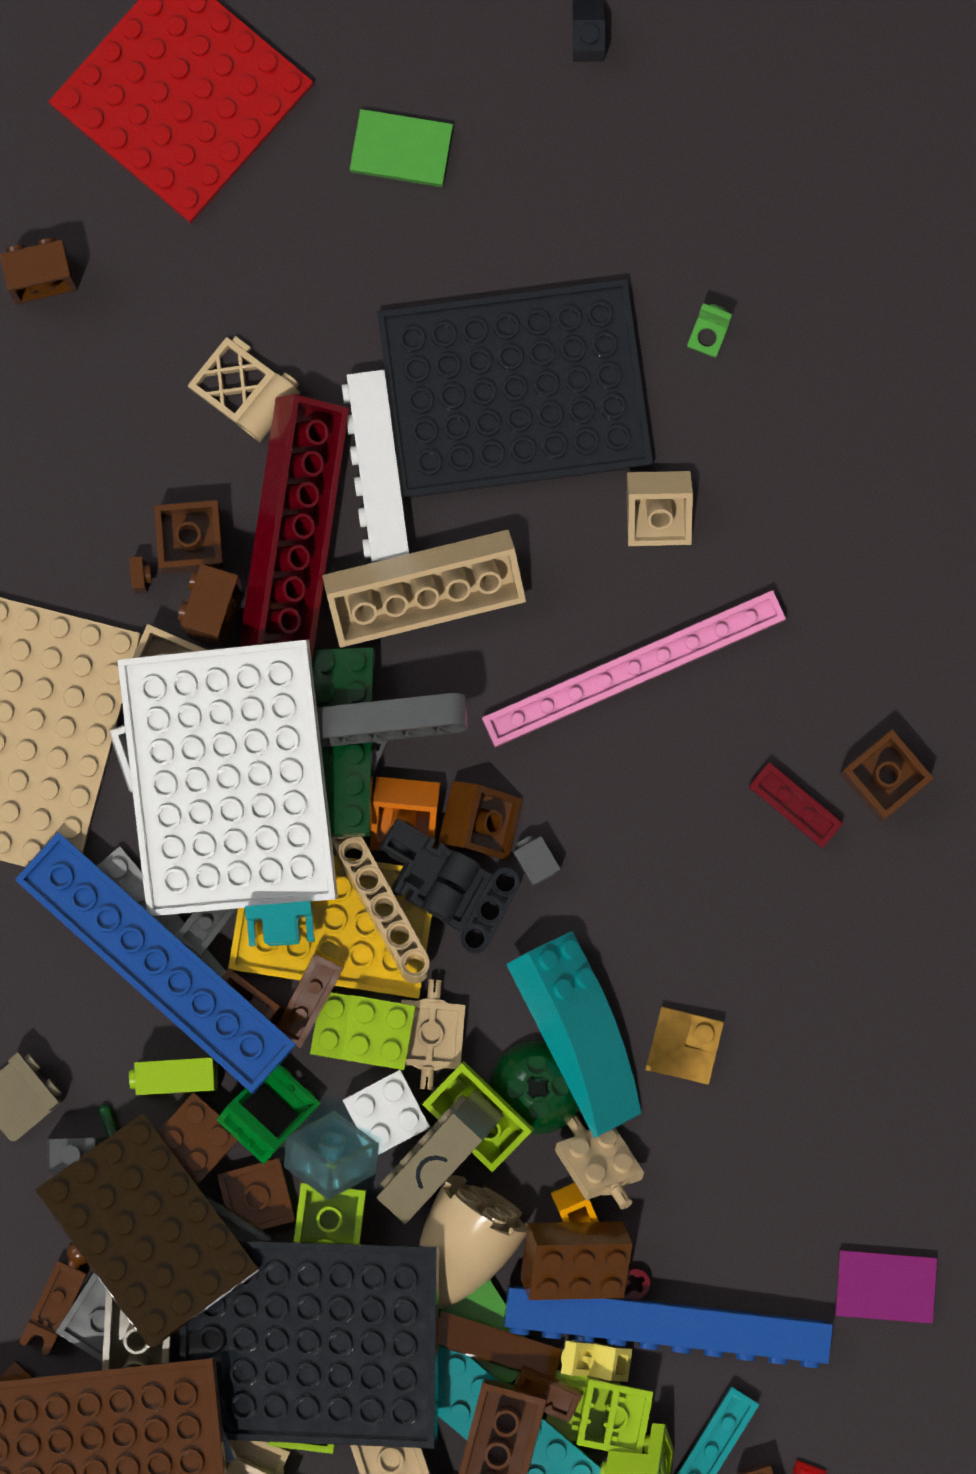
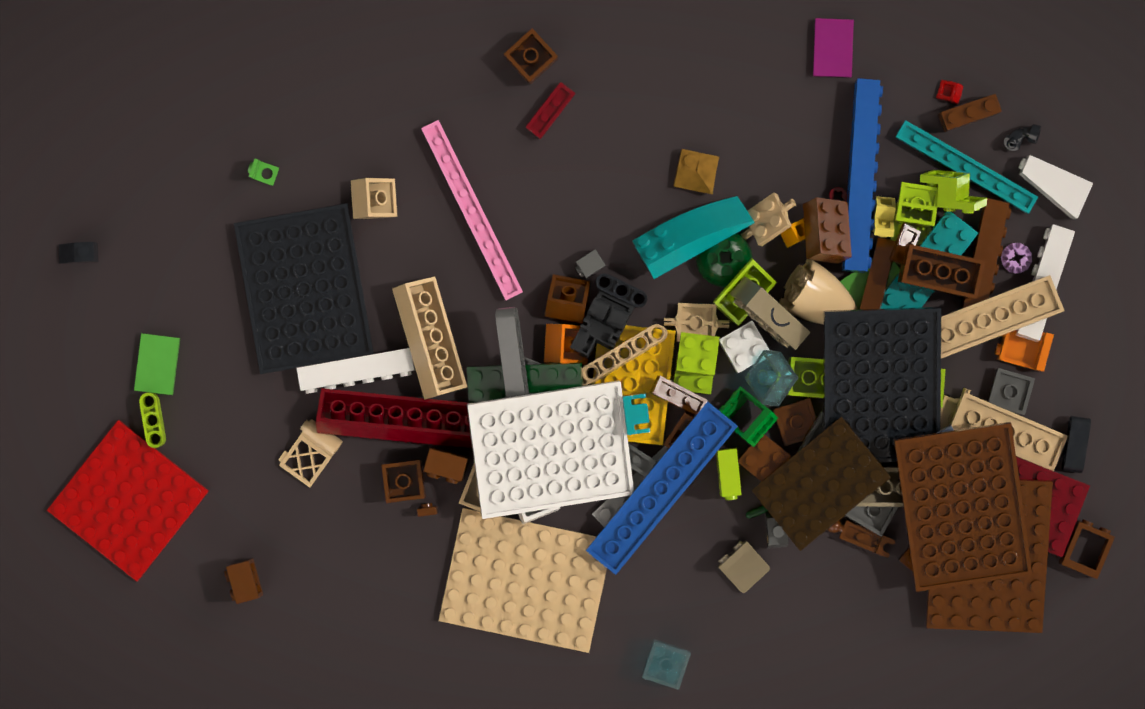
camera: 85 degrees left, 5 degrees up
(322, 126) = (158, 428): none -> lime beam

